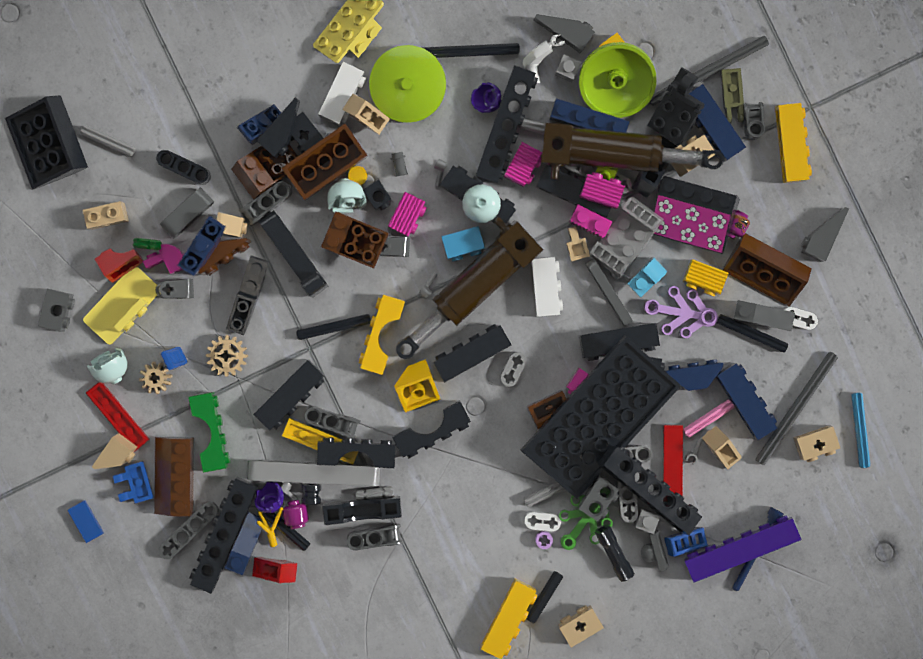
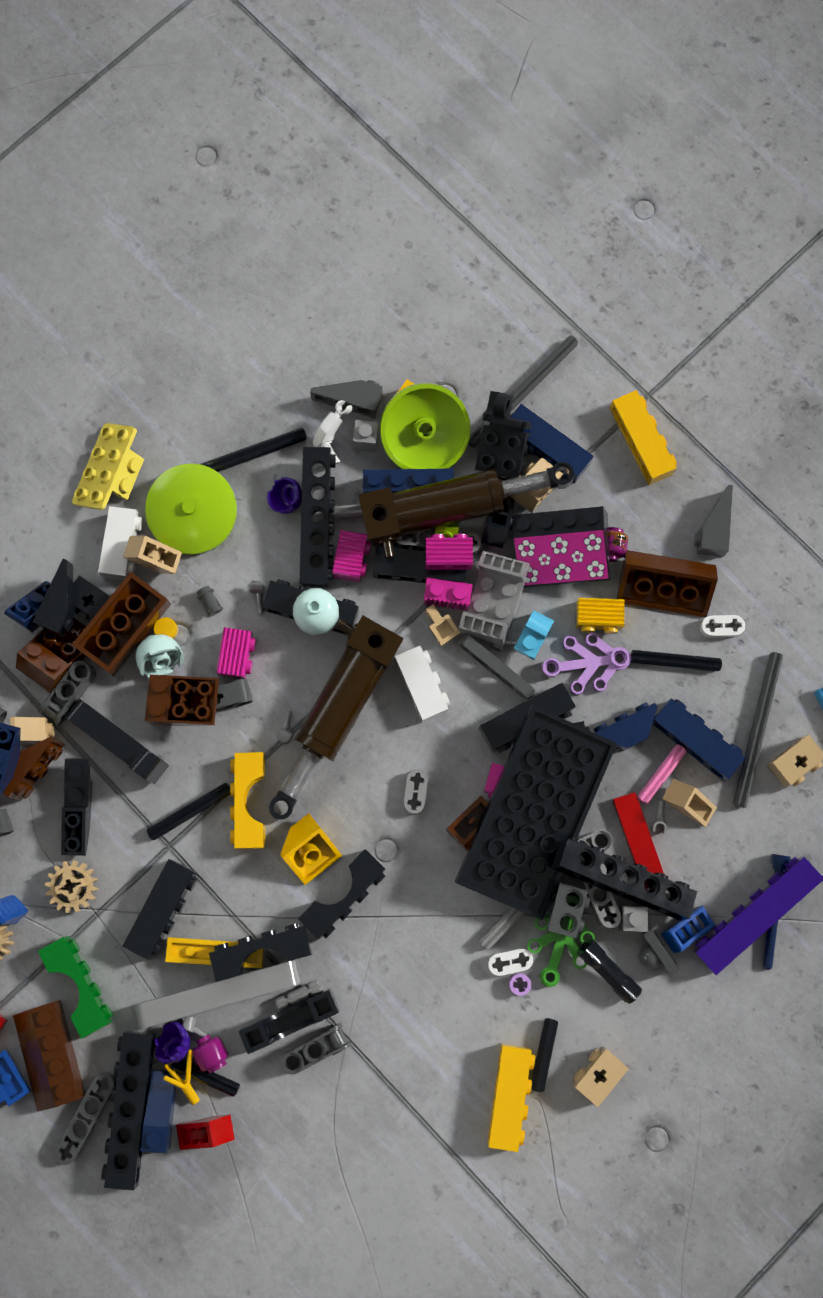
camera: 20 degrees left, 10 degrees down
(311, 494) = (222, 1021): black wheel -> none
(342, 422) = (233, 920): dark grey piece -> none
(377, 187) = (190, 634): black brick -> none
(463, 243) = (310, 665): dark azure brick -> none
(468, 355) = (361, 788): black brick -> none
(732, 93) = (557, 405): olive hinge -> none
(753, 117) = (590, 423): dark grey piece -> none
(764, 315) = (681, 634): dark grey slope -> none

